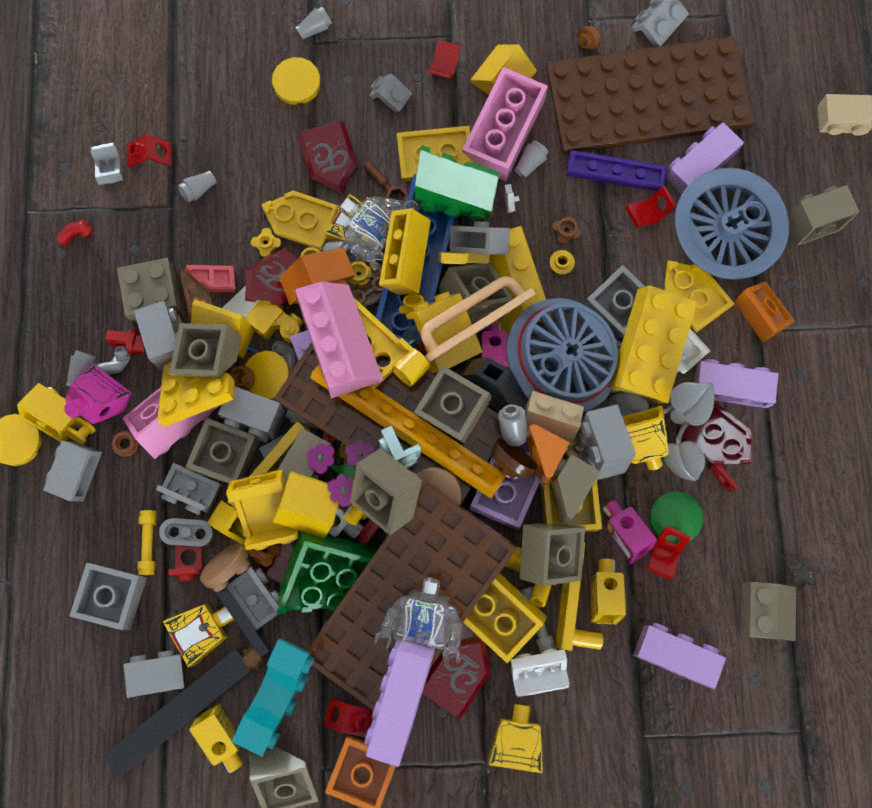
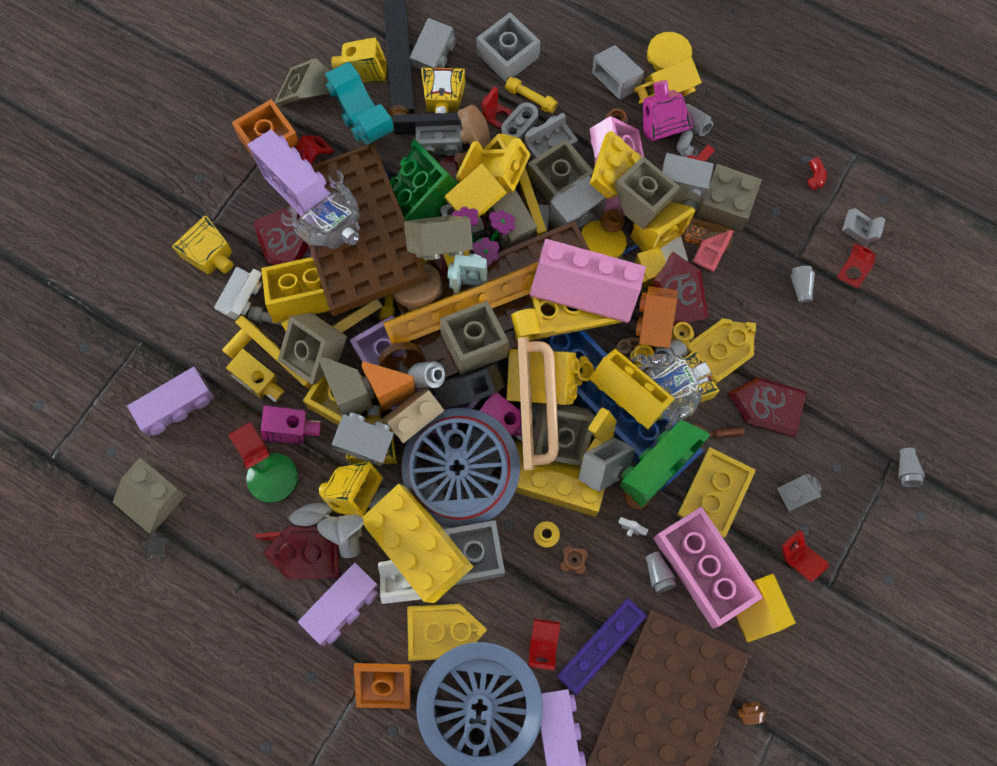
camera: 125 degrees right, 5 degrees down
(266, 249) = (714, 312): yellow plate -> none
(296, 80) = (859, 420): yellow tile -> none

